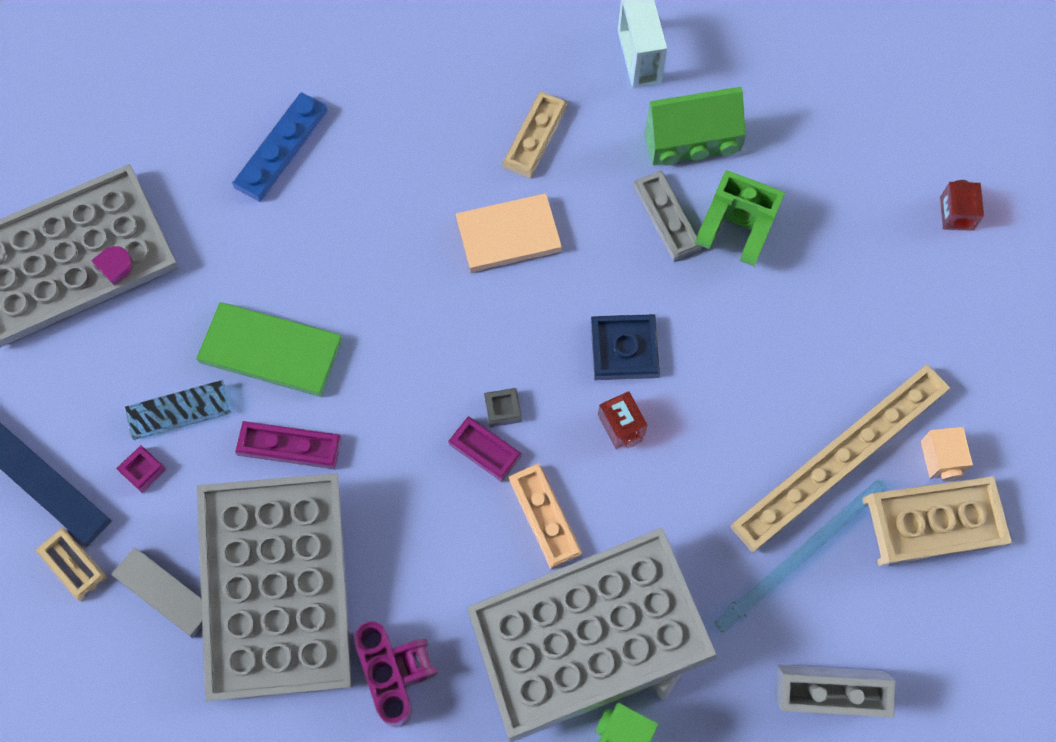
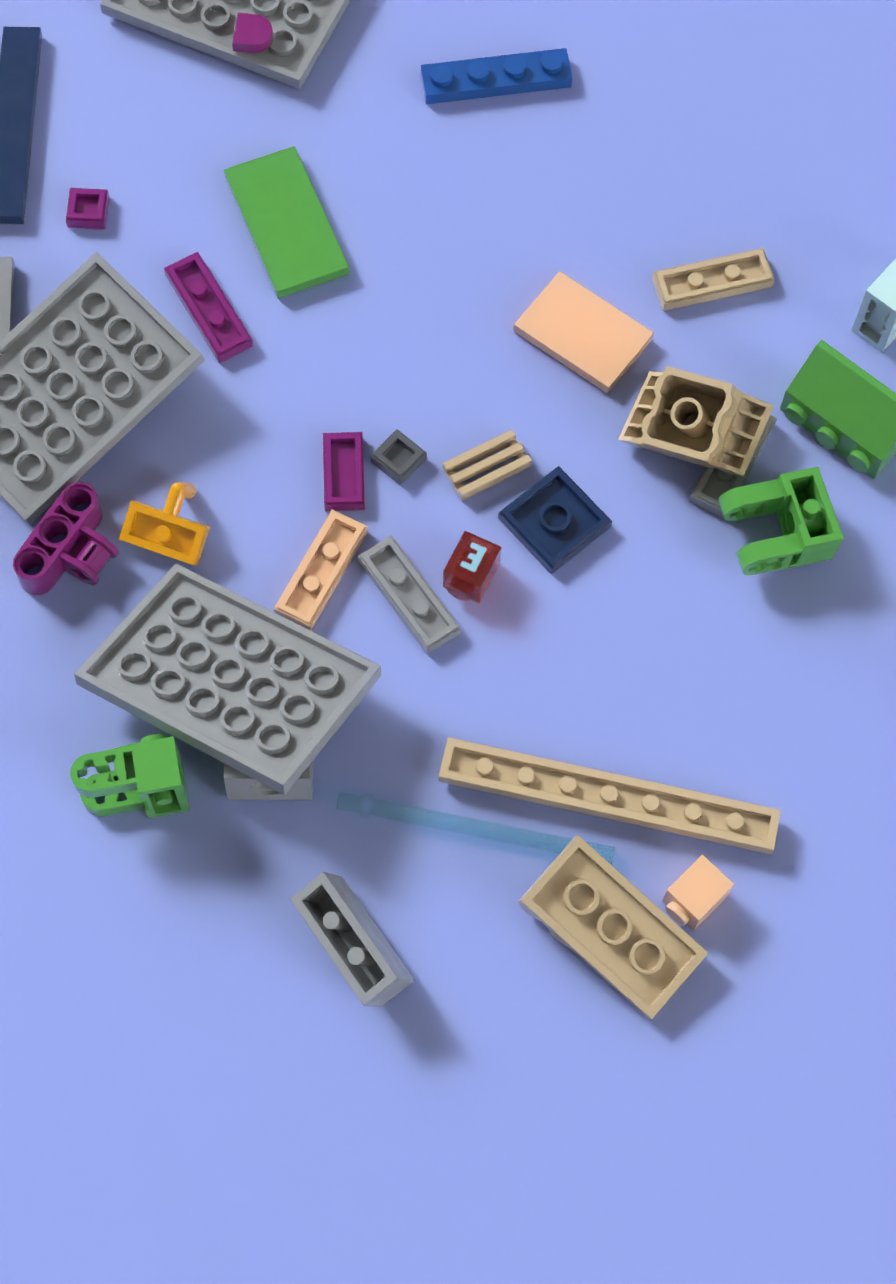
camera: 50 degrees right, 0 degrees up
(177, 410) = (165, 194): clear light blue tile -> none
(437, 595) = (164, 529): none -> light orange plate
(557, 333) = (465, 459): none -> tan tile
(606, 473) = (409, 594): none -> light grey tile
(630, 215) = (696, 420): none -> tan slope

